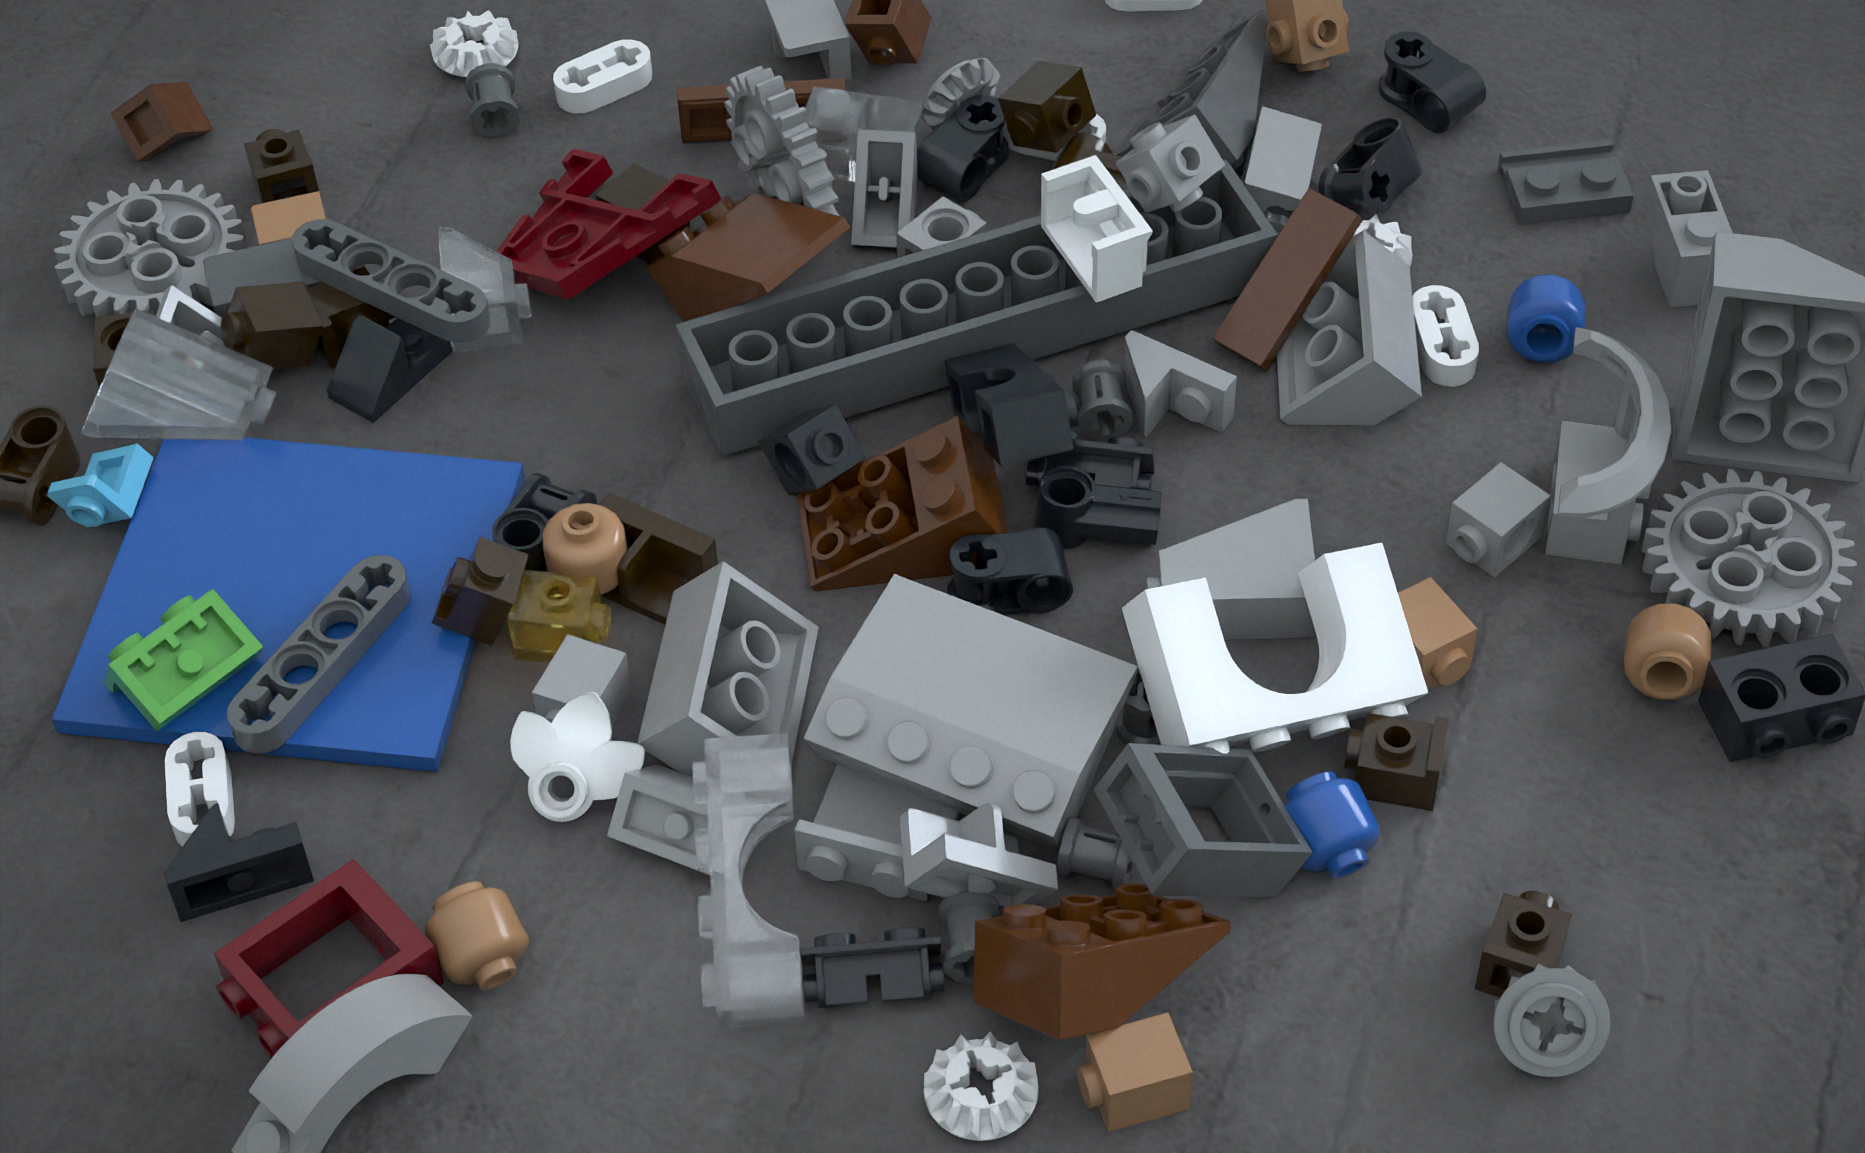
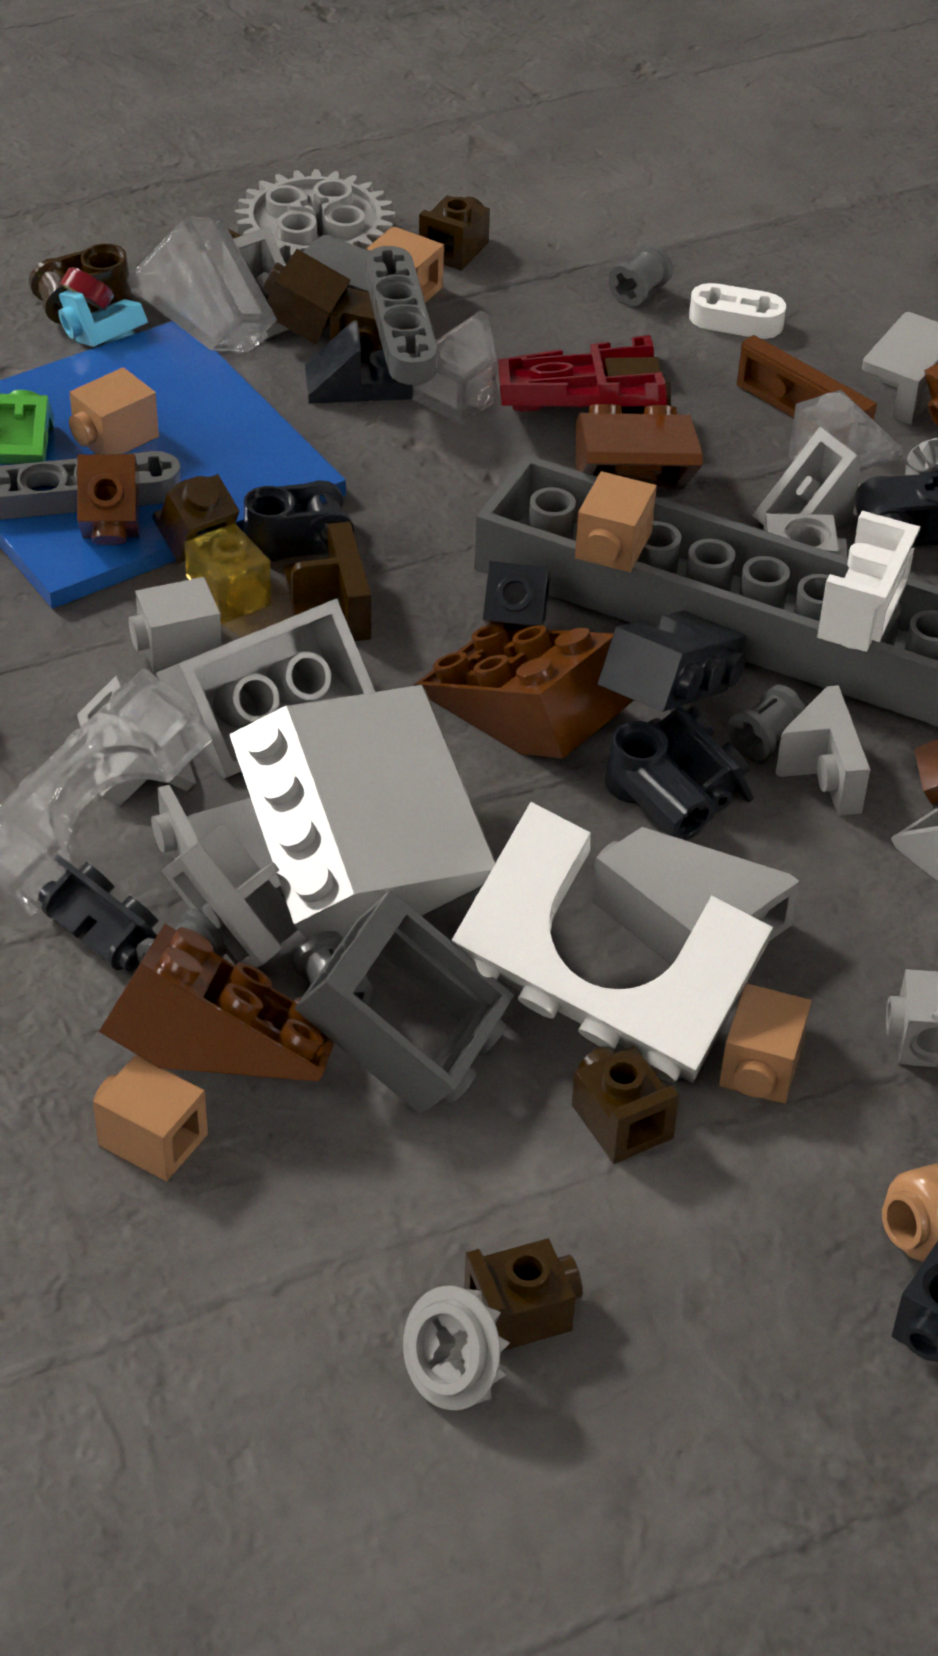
camera: 45 degrees right, 5 degrees down
(70, 465) = (93, 290): none -> dark red tile
(160, 118) = (430, 152): reddish brown panel -> none
(270, 560) = (114, 413): none -> medium nougat brick
(395, 634) = (108, 497): none -> reddish brown brick
(460, 58) = (702, 239): white gear -> none
(574, 747) = (108, 645): white plate -> none
(585, 542) = (290, 535): medium nougat head -> none
(770, 127) = (737, 407): light grey gear -> none
(846, 325) = (615, 521): none -> medium nougat brick
(965, 1110) = (65, 1061): white gear -> none
(1013, 570) = (542, 770): black piece -> none
(1333, 822) = (507, 1093): blue head -> none

